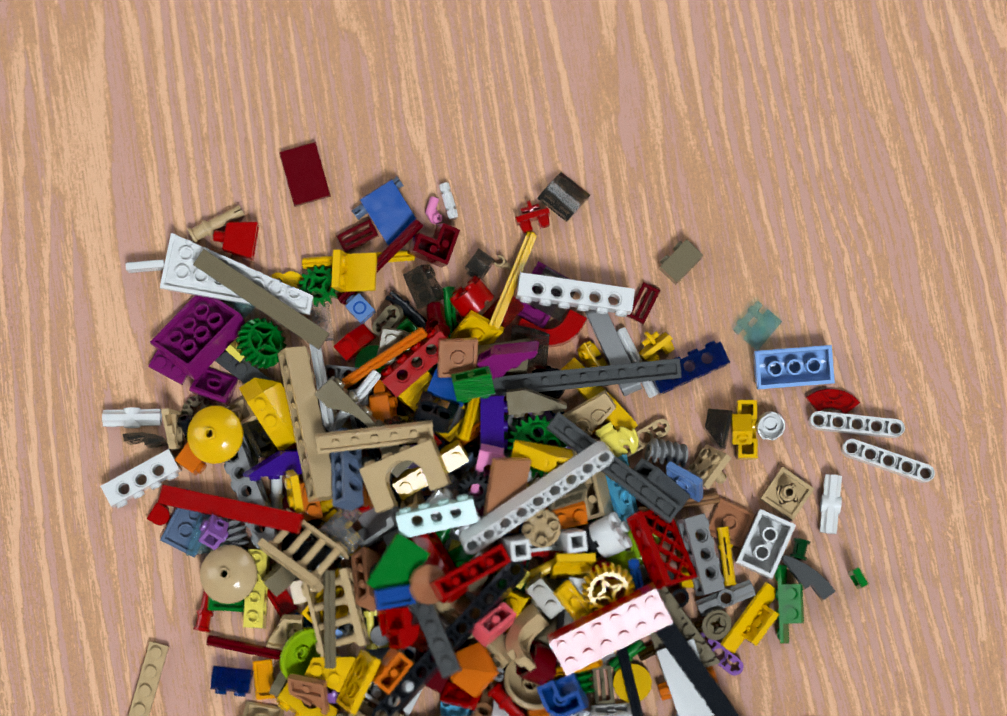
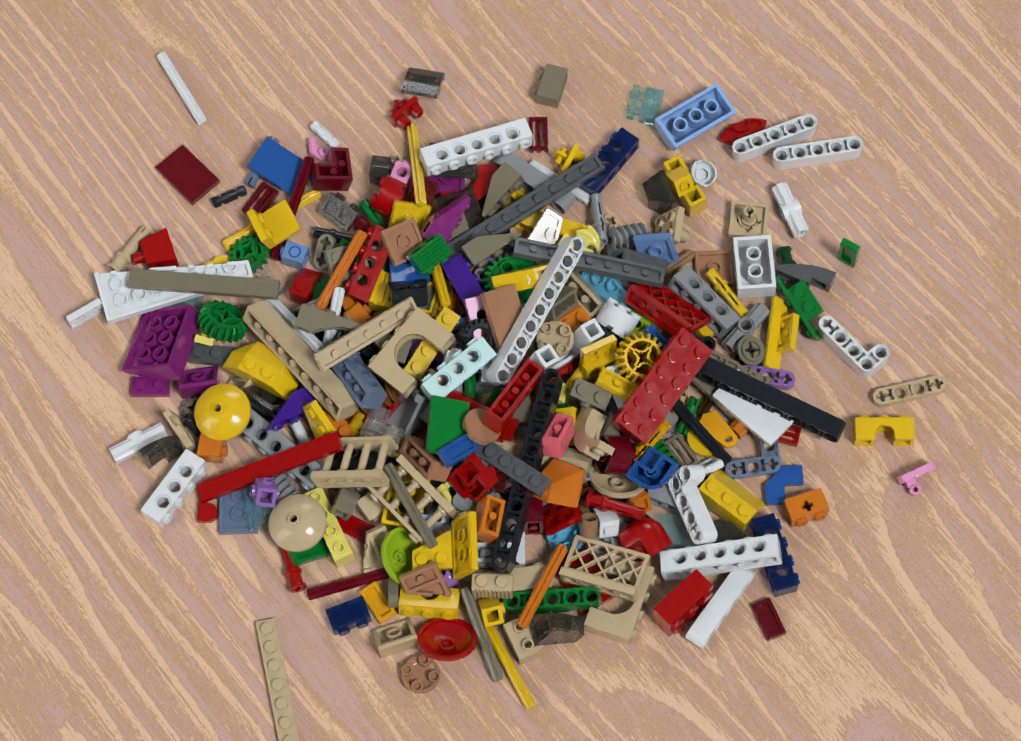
camera: 30 degrees left, 15 degrees down
(331, 216) = (229, 196): none -> black axle
(343, 88) = (181, 88): none -> white axle
(497, 271) = (403, 168): none -> bright pink brick
(578, 344) = (502, 186): none -> dark tan slope
(646, 682) = (719, 429): none -> light orange piece
(647, 429) = (598, 218): none -> light grey pin
(801, 666) = (850, 344): none -> white beam

